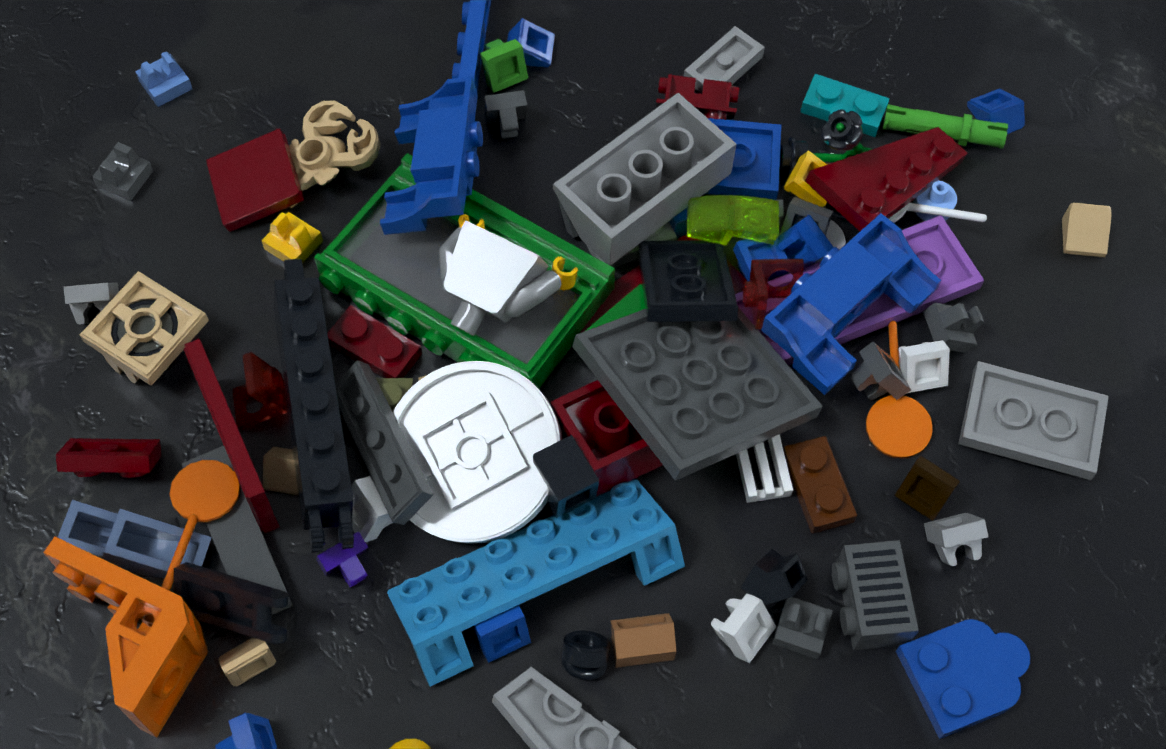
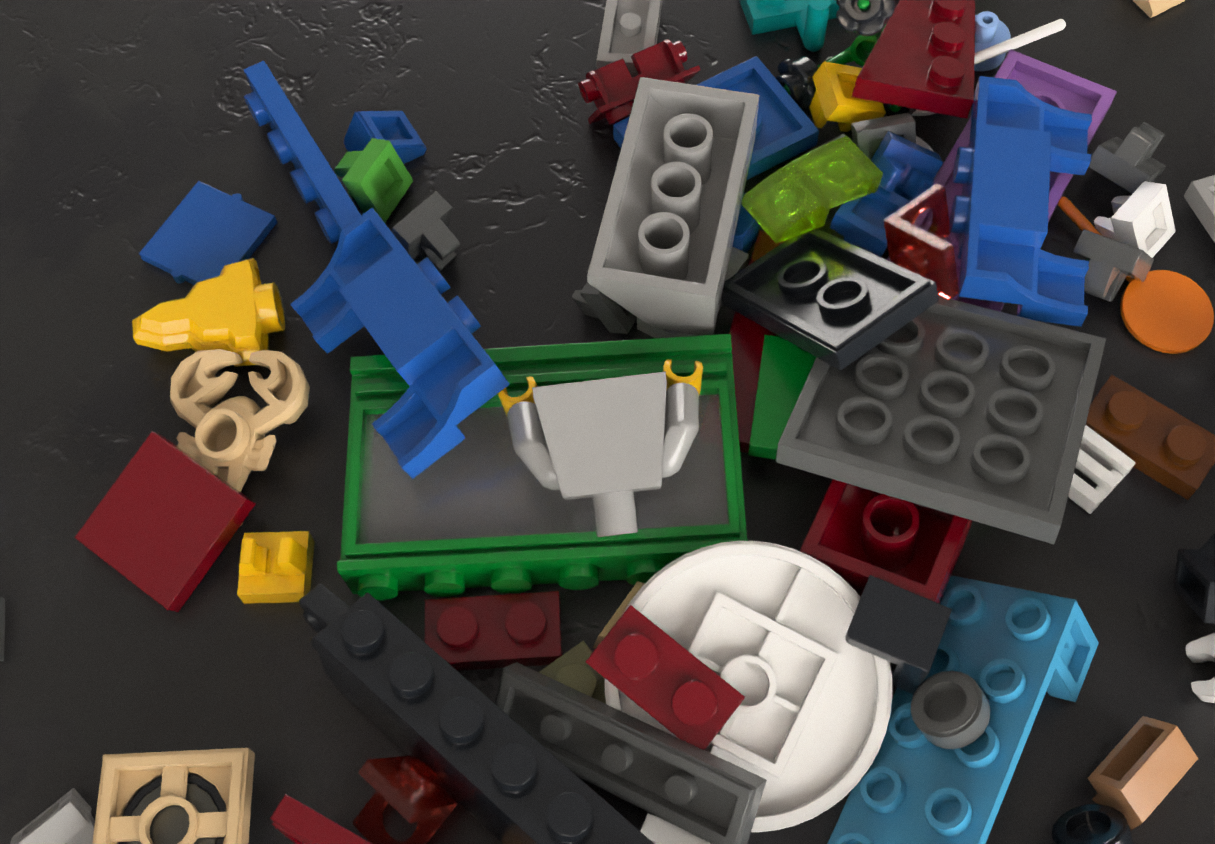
camera: 30 degrees left, 0 degrees up
(365, 89) = (217, 313): none -> yellow rock
(393, 43) = (206, 234): none -> blue piece
(428, 416) = (665, 679): none -> dark red plate
(560, 531) = (950, 709): none -> dark grey tile

